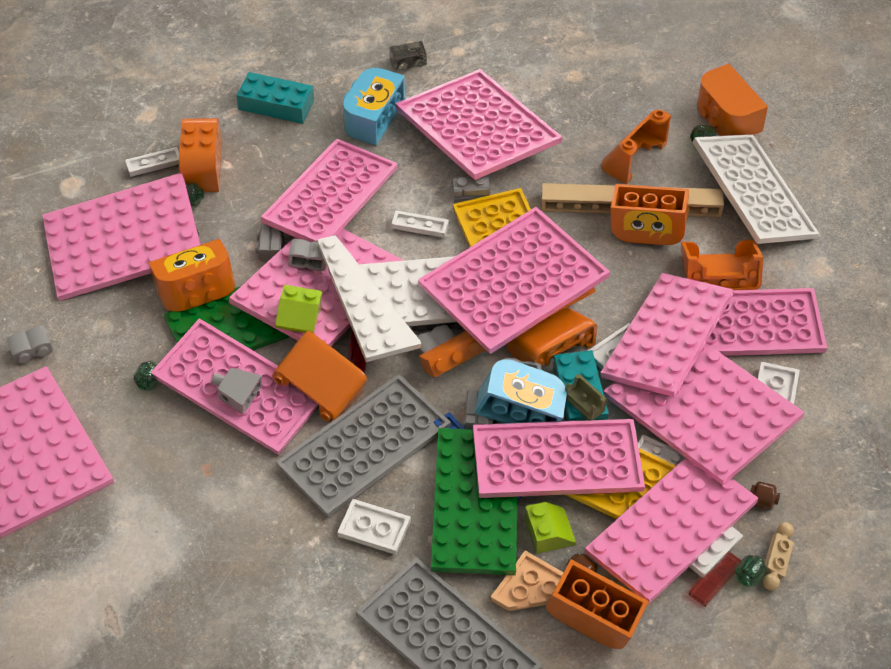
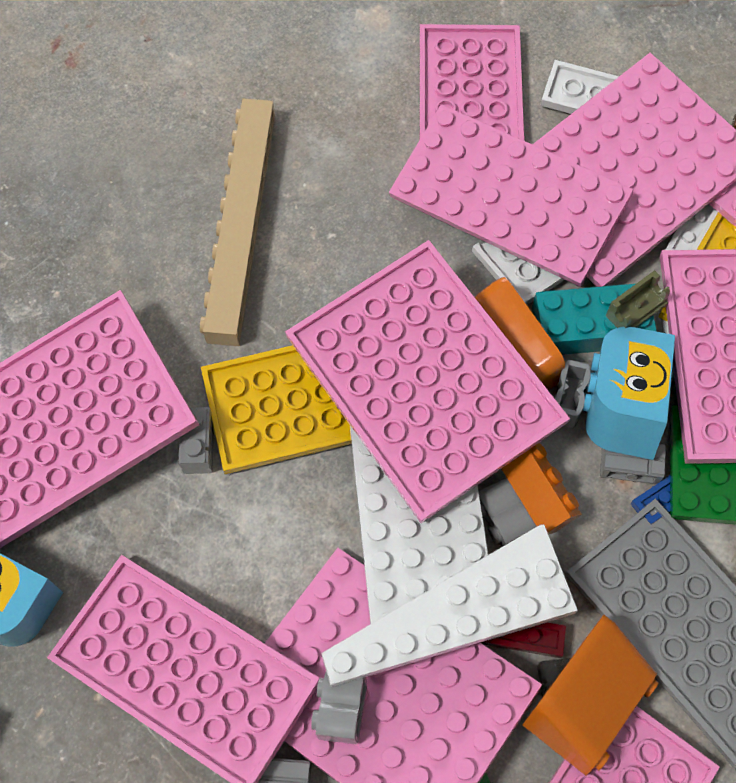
camera: 85 degrees left, 15 degrees up
(298, 309) = (476, 722): lime slope -> none
(420, 224) = (256, 526): white plate -> none
(648, 133) = (153, 217): orange windscreen -> none
(649, 214) = (291, 185): orange brick -> none
(702, 131) = (127, 112): clear green head -> none
(730, 103) = (74, 67): orange brick -> none
(730, 271) = (377, 118): orange windscreen -> none
(755, 189) = (241, 62): white plate -> none

